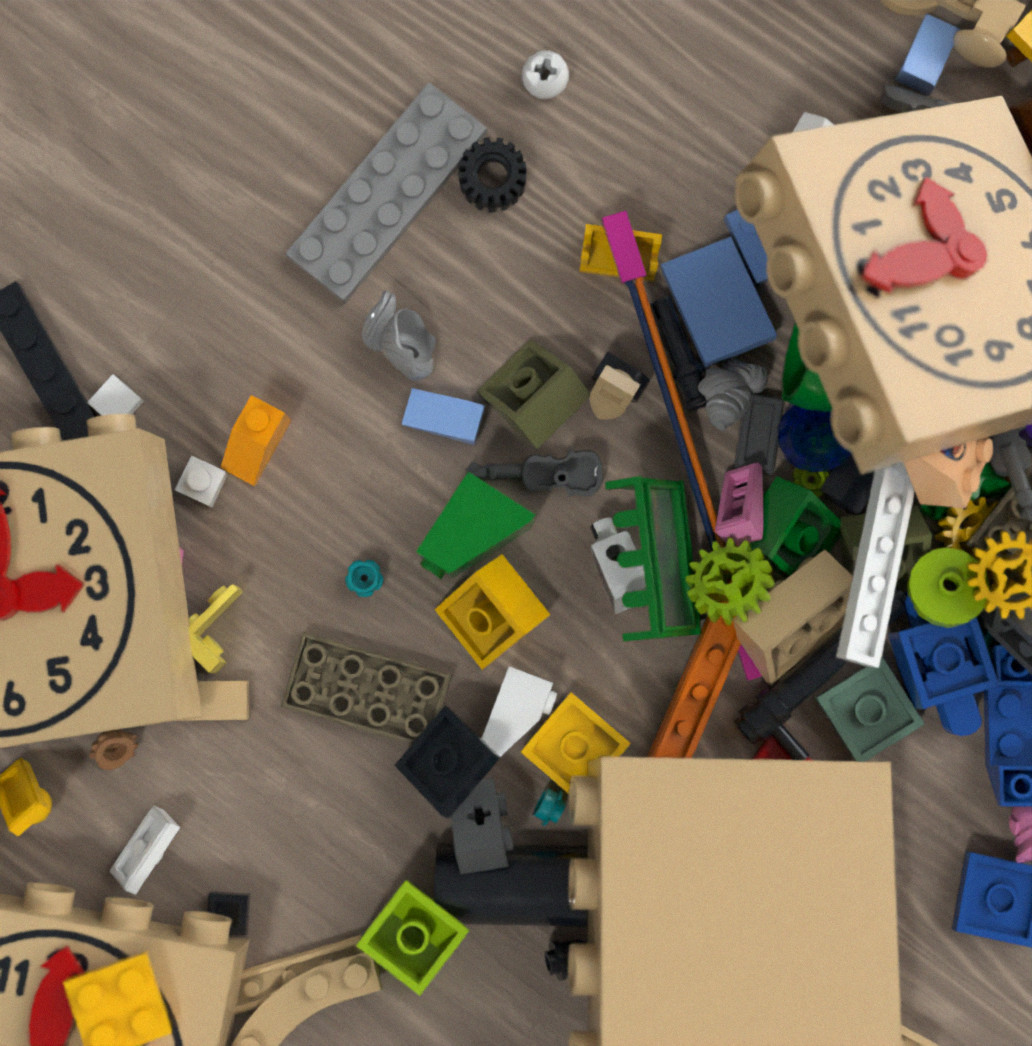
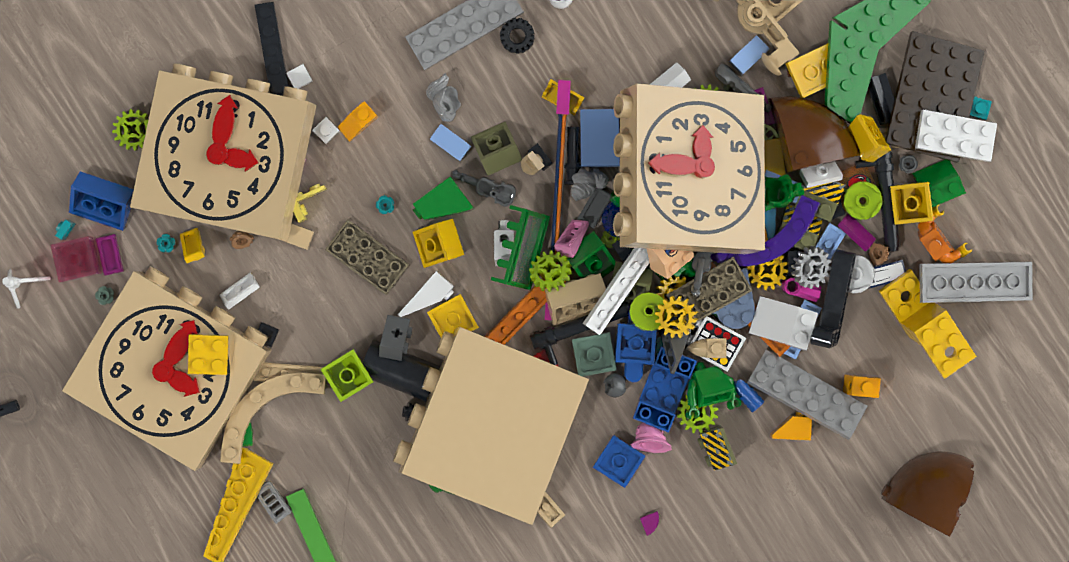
camera: 20 degrees right, 5 degrees up
(447, 762) = (391, 303): black plate -> none
(549, 806) = (431, 342): teal plate -> none
(934, 754) = (615, 385): none -> dark grey piece

